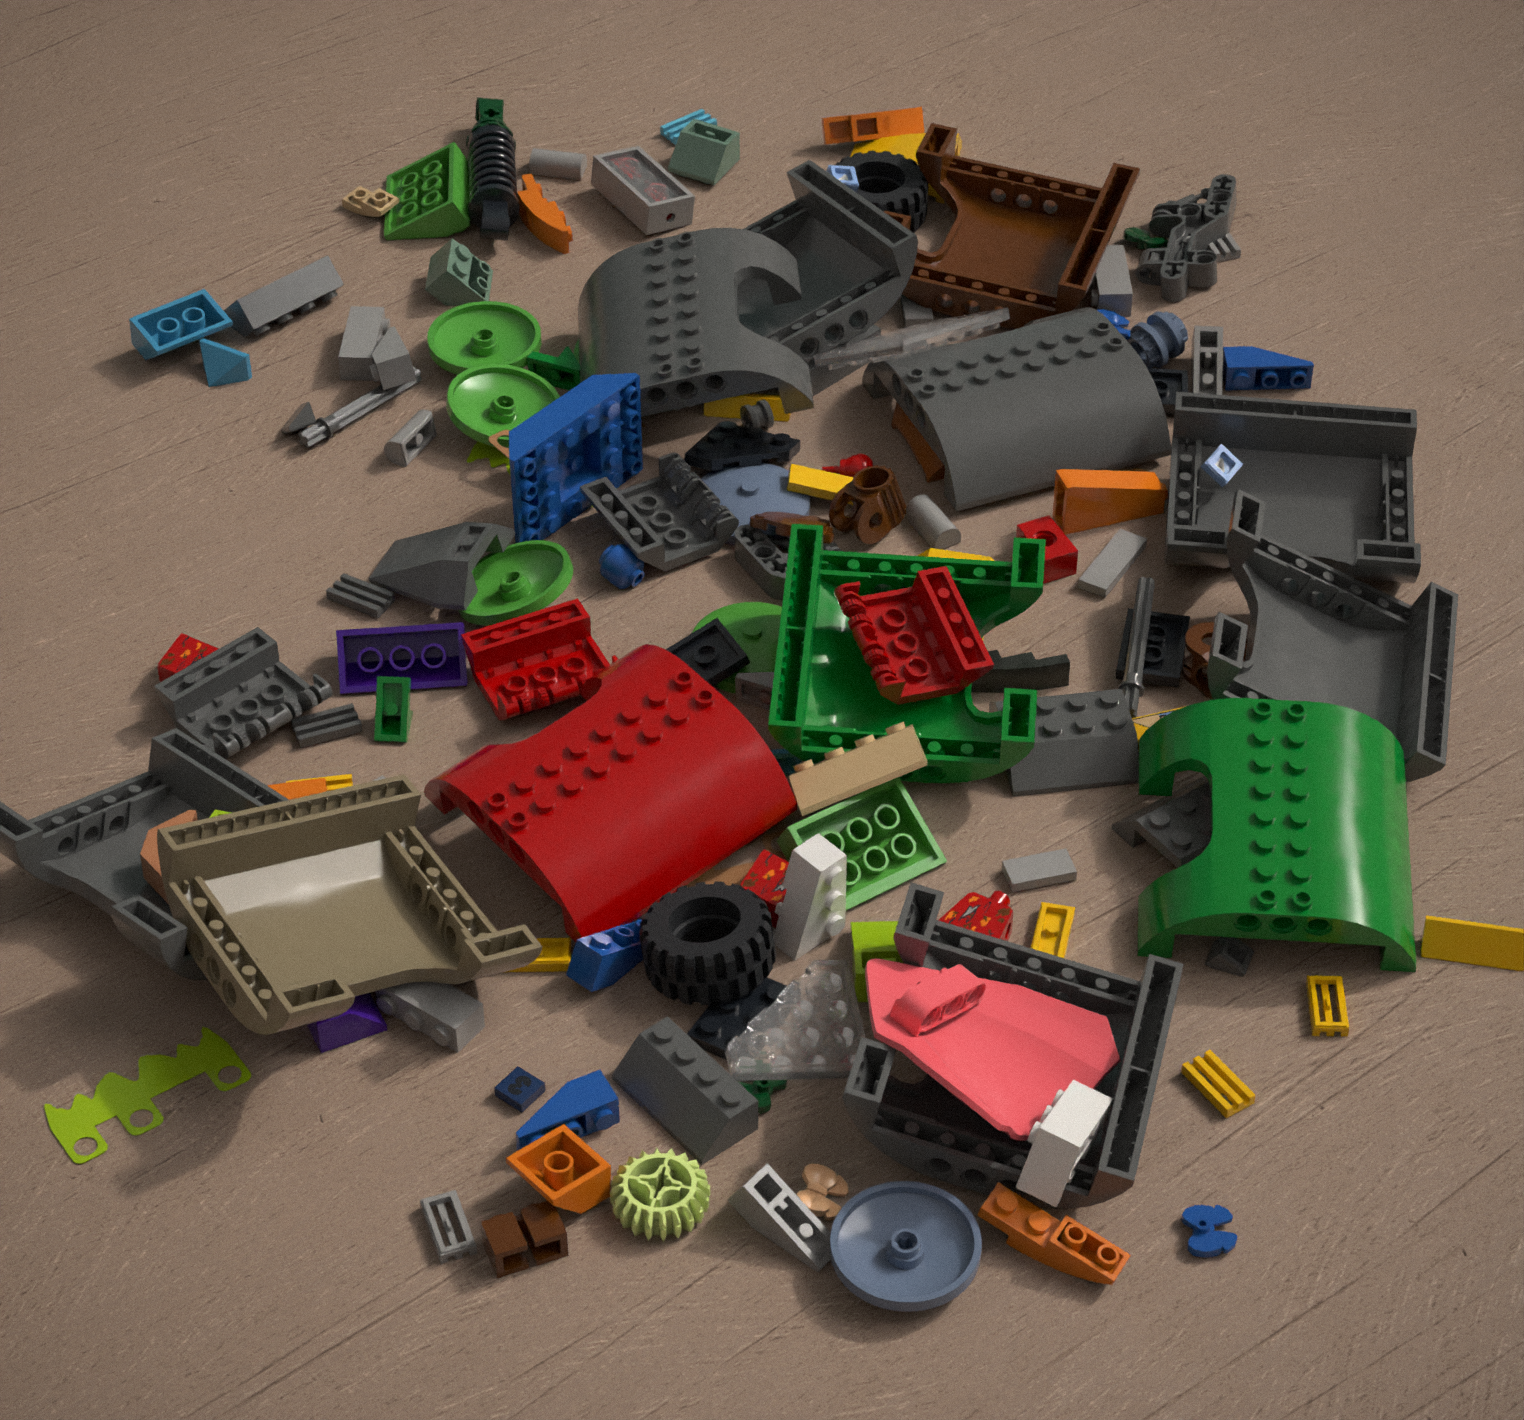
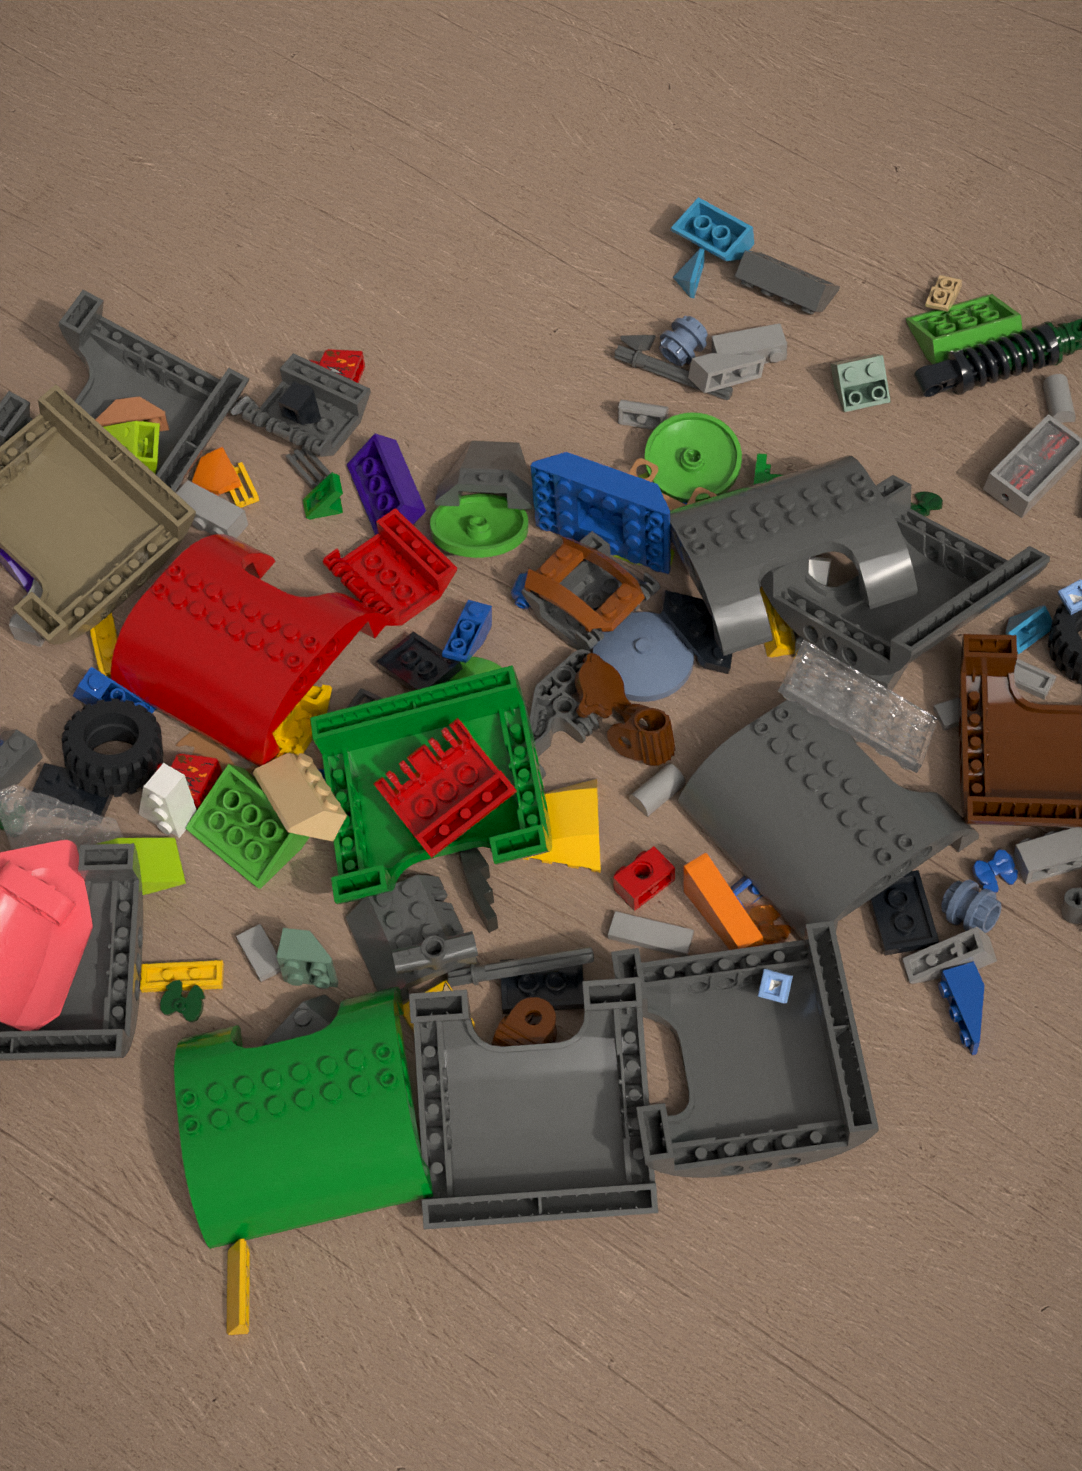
camera: 80 degrees right, 15 degrees up
(256, 680) = (300, 404): none -> black slope
(326, 382) = (686, 337): none -> sand blue piece
(363, 592) = (459, 427): dark grey tile -> none
(483, 335) = (777, 420): bright green dish -> none
(543, 217) = (968, 410): orange slope -> none
(667, 614) = (469, 631): none -> blue slope
(706, 495) = (611, 613): none -> dark orange wedge
(816, 482) = (675, 703): yellow tile -> none
(851, 465) = (712, 717): red piece -> none
(983, 914) = (181, 922): red torso -> none
(1076, 812) = (305, 960): none -> sand green slope
(1096, 940) = (190, 1007): none -> dark green piece
(1116, 688) = (451, 949): none -> dark grey piece
(1222, 1081) = (54, 1115): yellow tile -> none
(1327, 1026) = (154, 1195): yellow tile -> none

